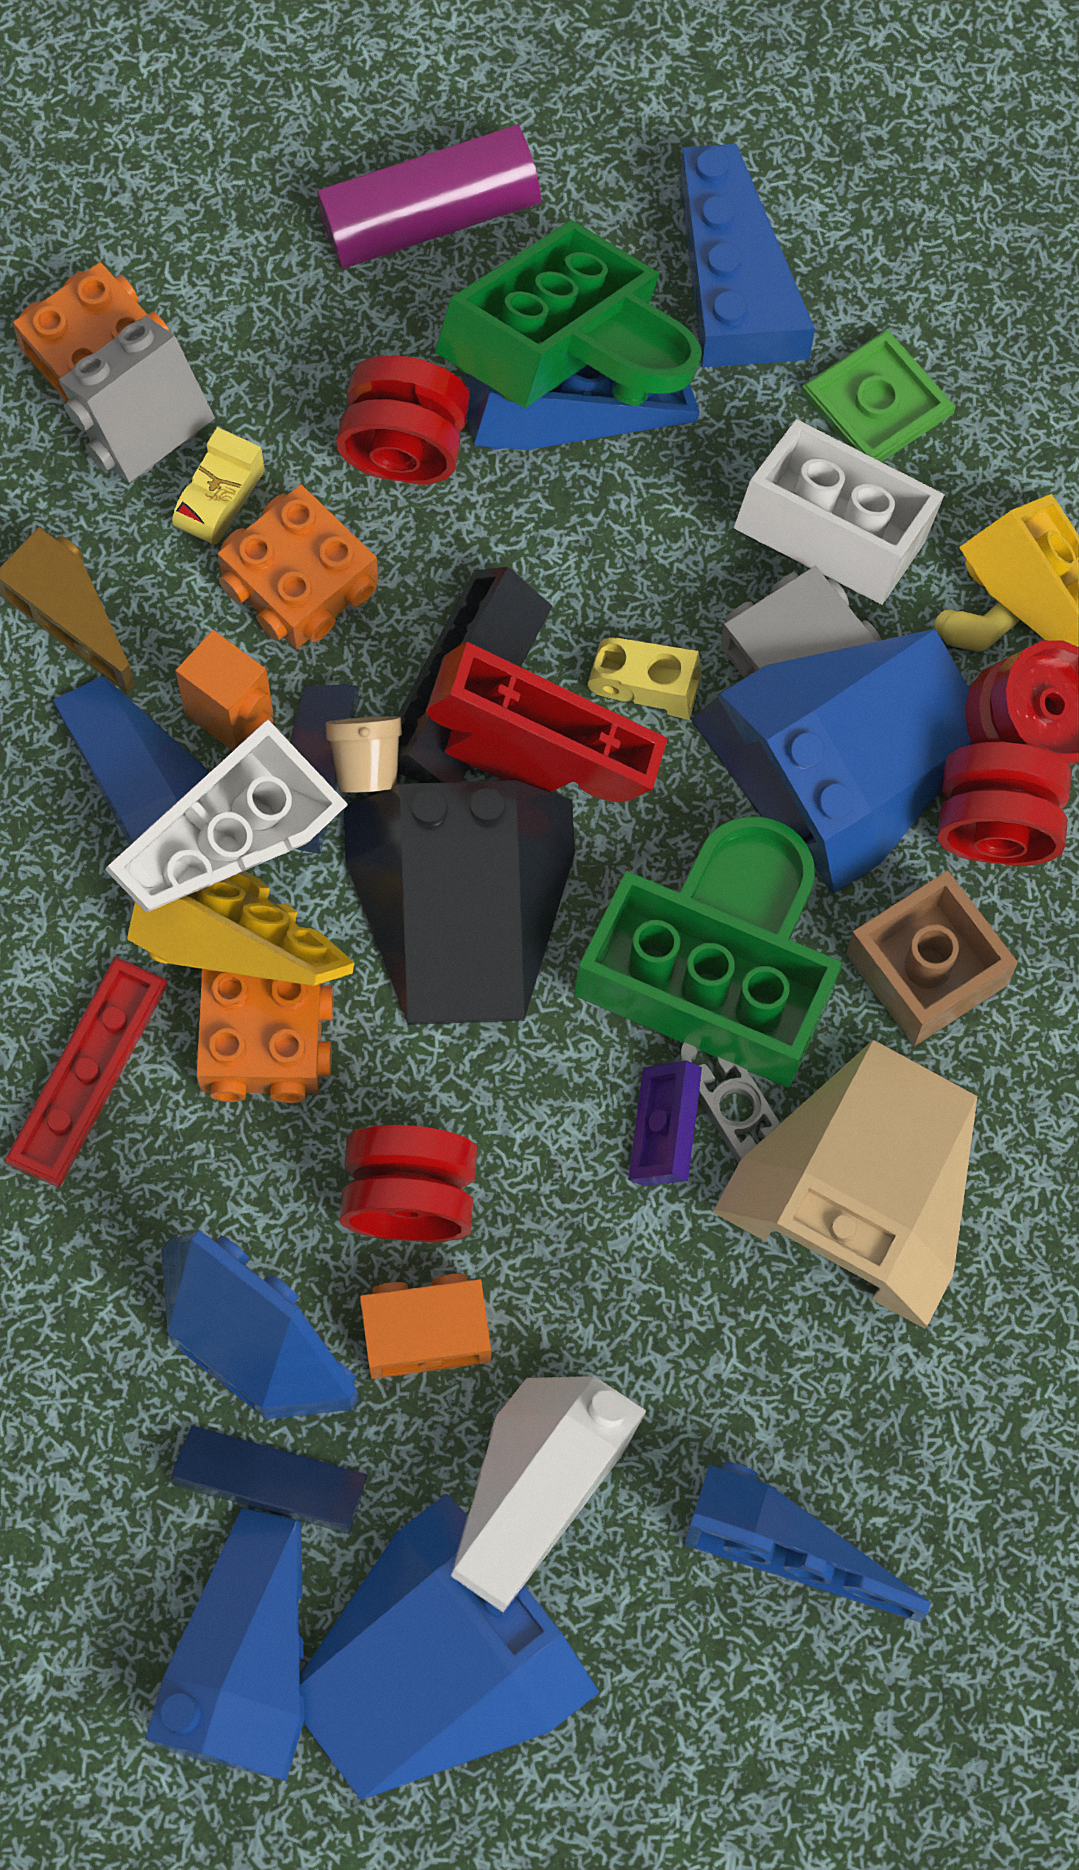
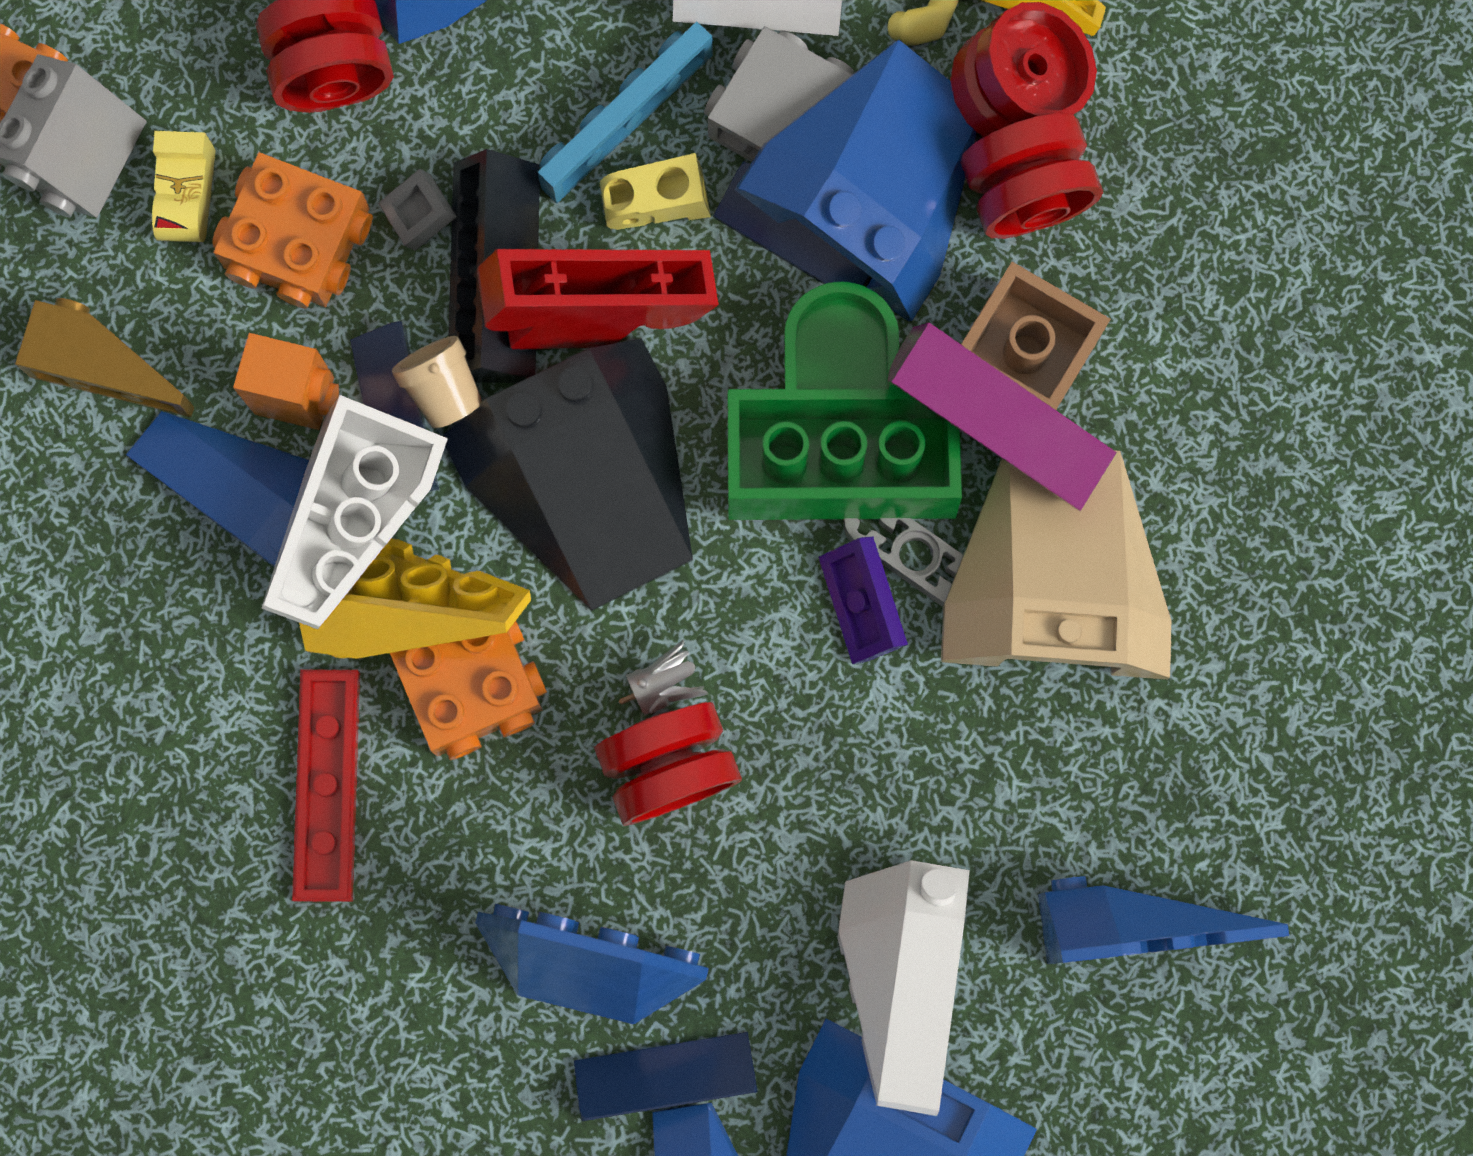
camera: 25 degrees left, 10 degrees up
(420, 597) = (417, 209): none -> dark grey plate
(425, 1326) = (738, 880): orange brick -> none
(427, 1109) = (654, 684): none -> flat silver piece
(668, 586) = (638, 98): none -> dark azure plate
(870, 1001) = (1000, 414): none -> magenta brick

